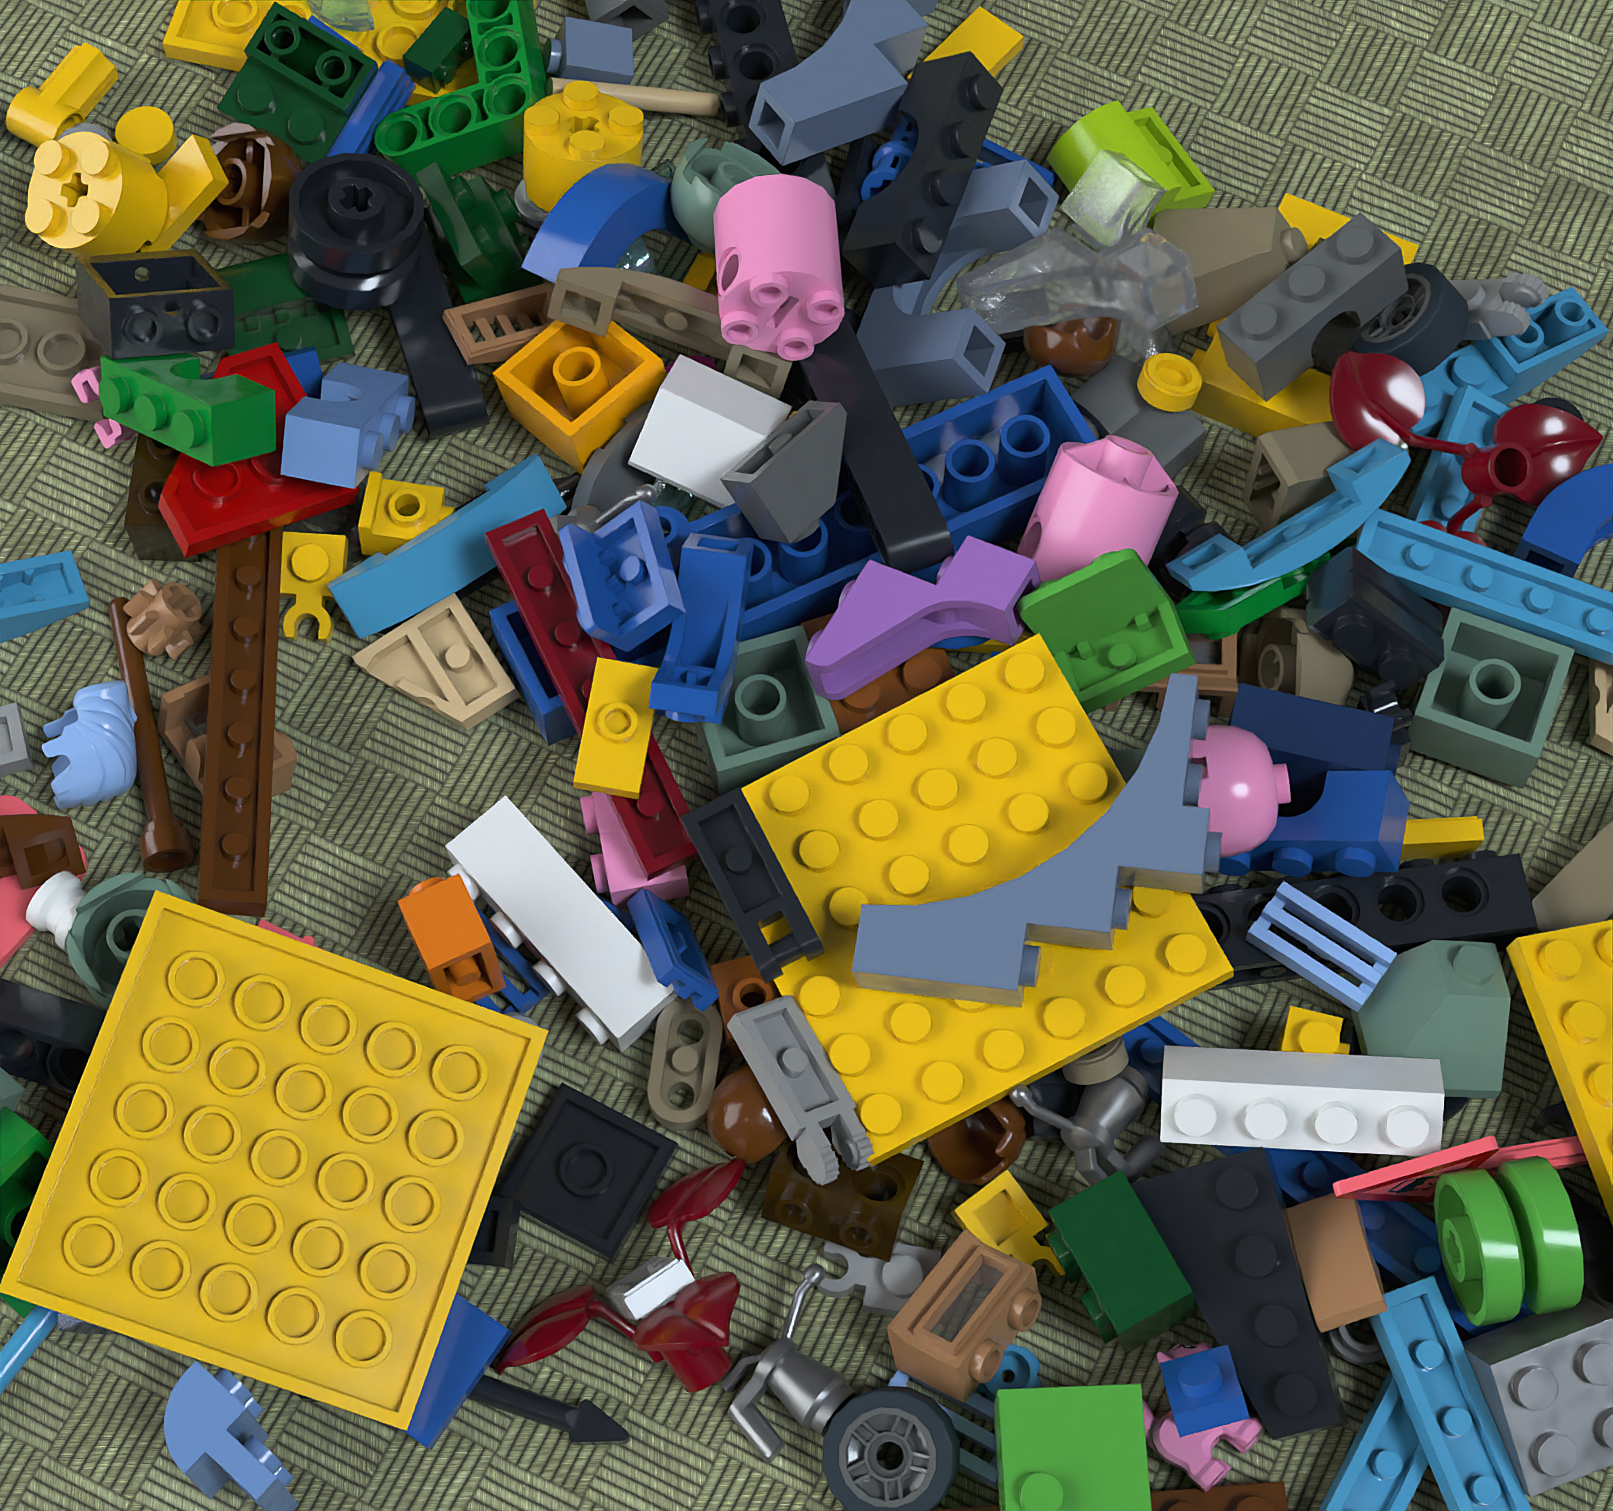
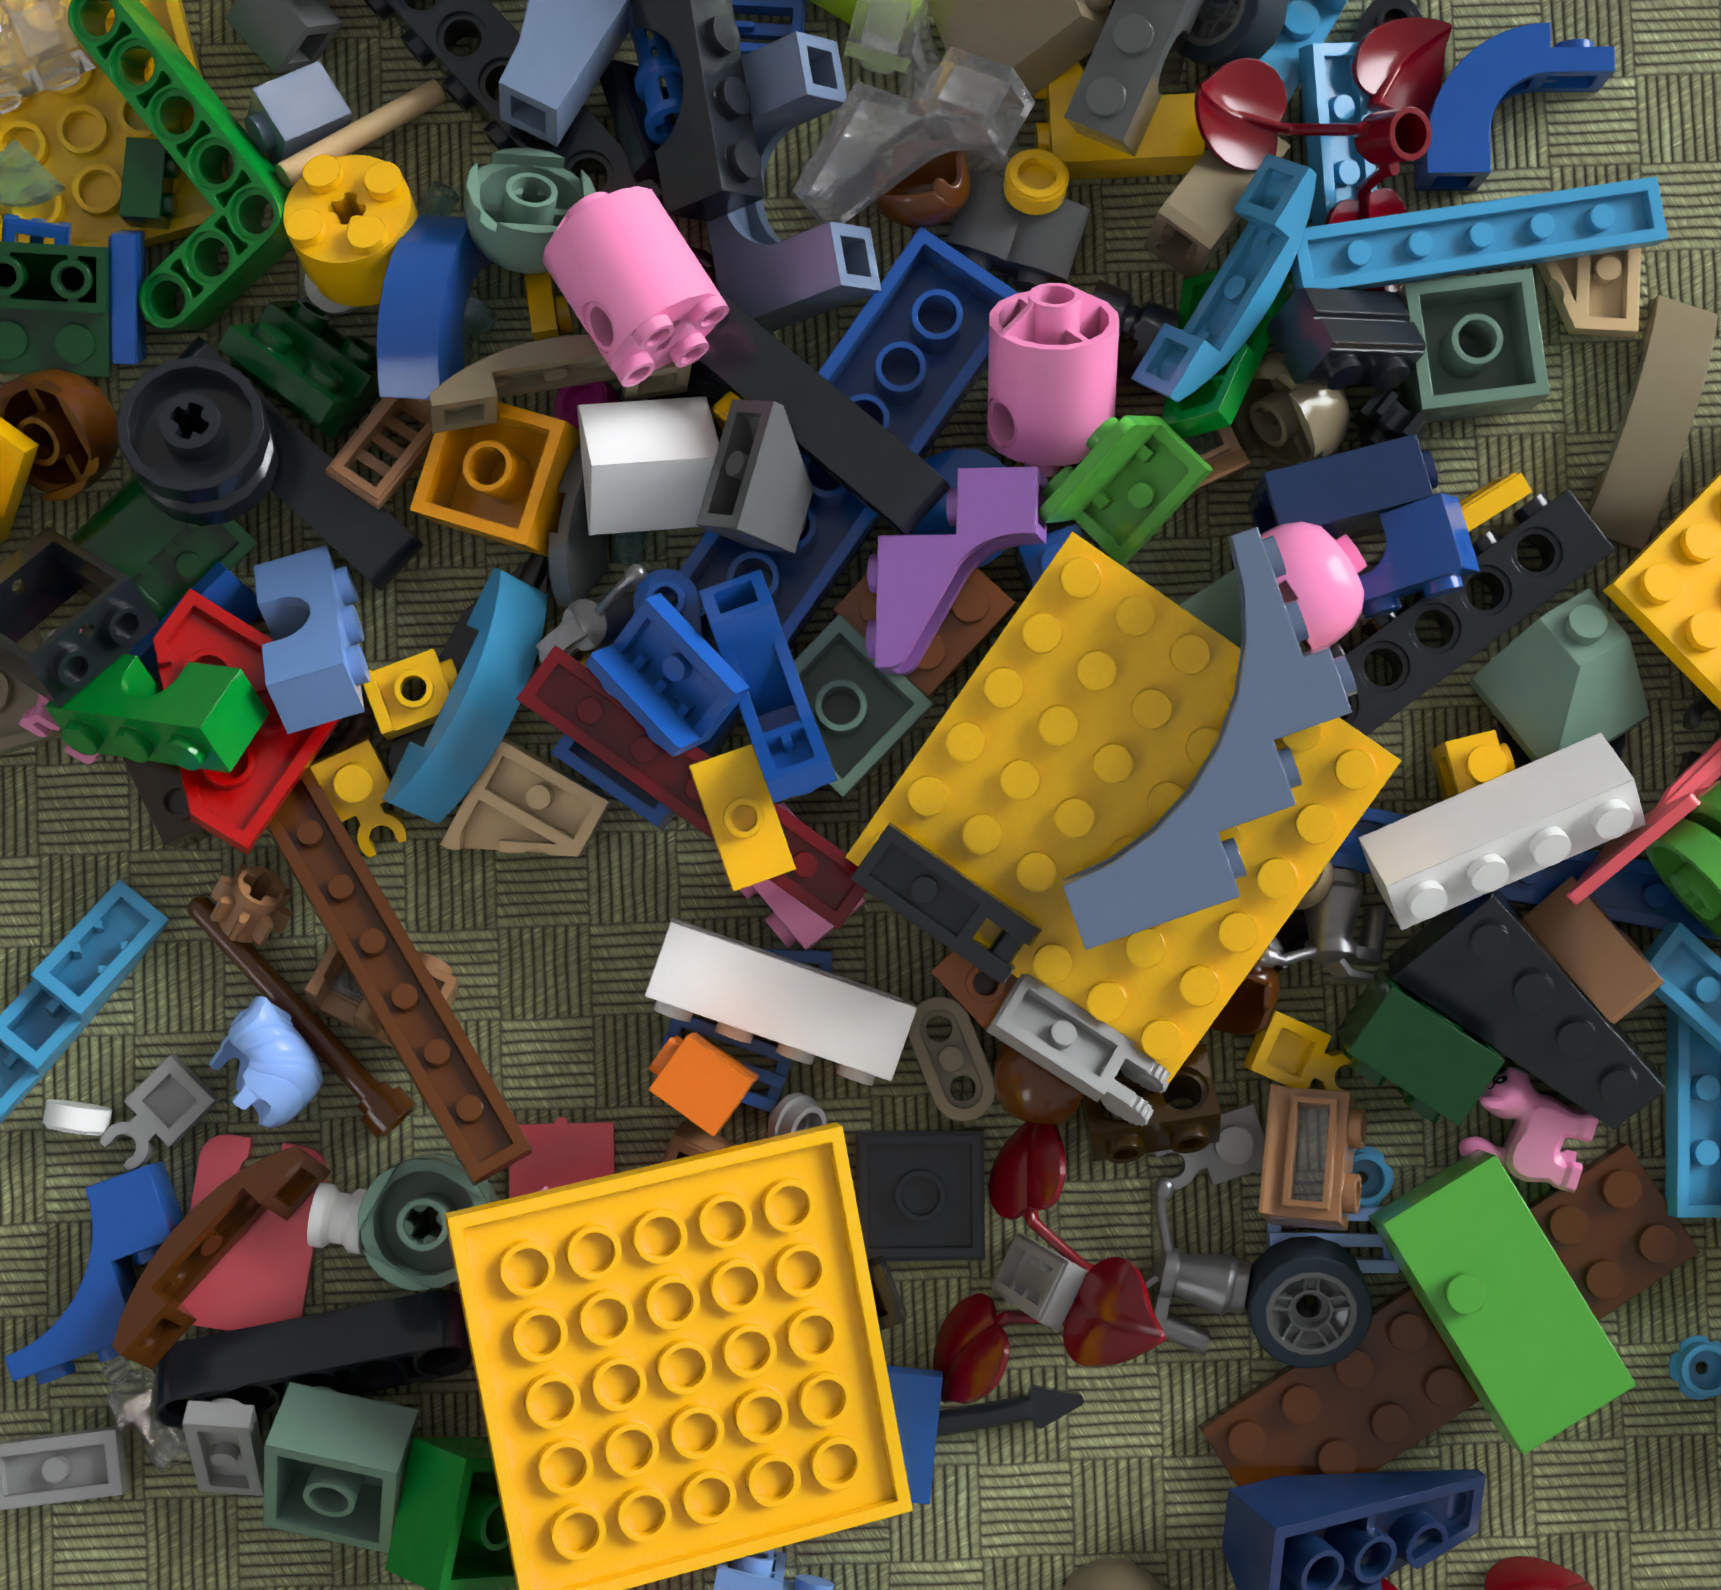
camera: 30 degrees left, 20 degrees up
(673, 948) = (890, 973): blue tile -> none
(1204, 1390) = (1549, 1132): blue bracket -> none
(1332, 926) = (1499, 679): light blue tile -> none

